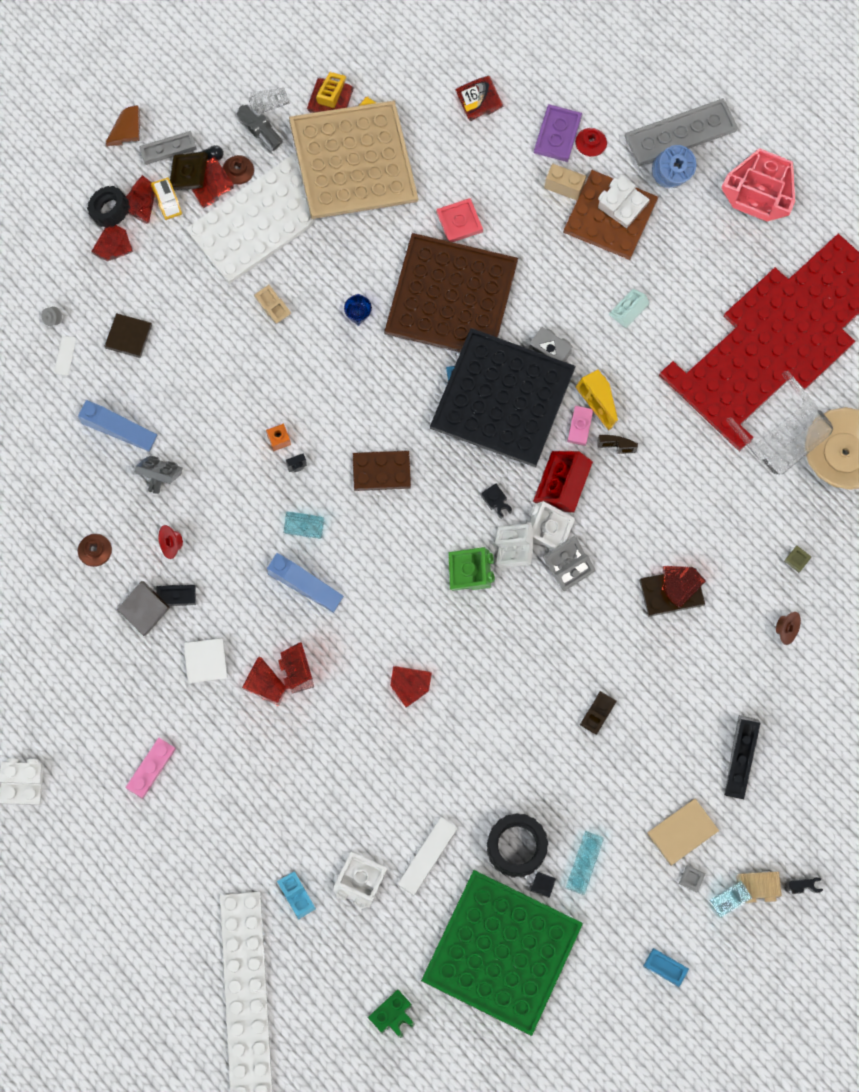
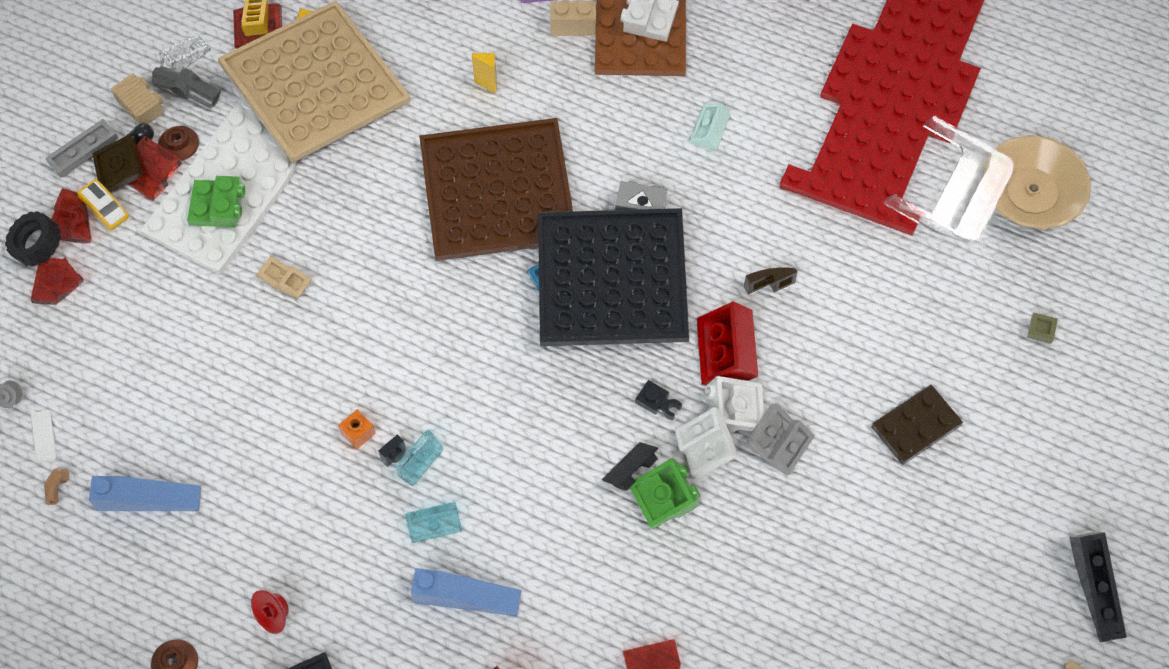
camera: 20 degrees left, 10 degrees down
(63, 389) = (51, 485): none -> medium nougat arm
(126, 127) = (20, 144): dark orange slope -> none
(128, 335) = (116, 381): dark brown tile -> none
(158, 472) = (220, 529): dark grey plate -> none
(220, 124) = (137, 99): none -> tan brick
(246, 229) = (216, 202): none -> bright green plate
(313, 475) = (419, 458): none -> clear light blue slope
(357, 308) = (391, 243): clear blue hat -> none
(381, 470) = (502, 420): reddish brown plate -> none
(445, 544) = (621, 474): none -> black piece
(459, 220) = (469, 103): coral plate -> none
(481, 200) = (485, 70): none -> yellow slope
(580, 425) = (716, 276): bright pink plate -> none
(598, 395) = (725, 235): yellow slope -> none
(598, 712) = (901, 604): dark brown slope -> none
(681, 583) = (925, 407): clear red slope -> none
(788, 627) = (1072, 409): copper piece -> none

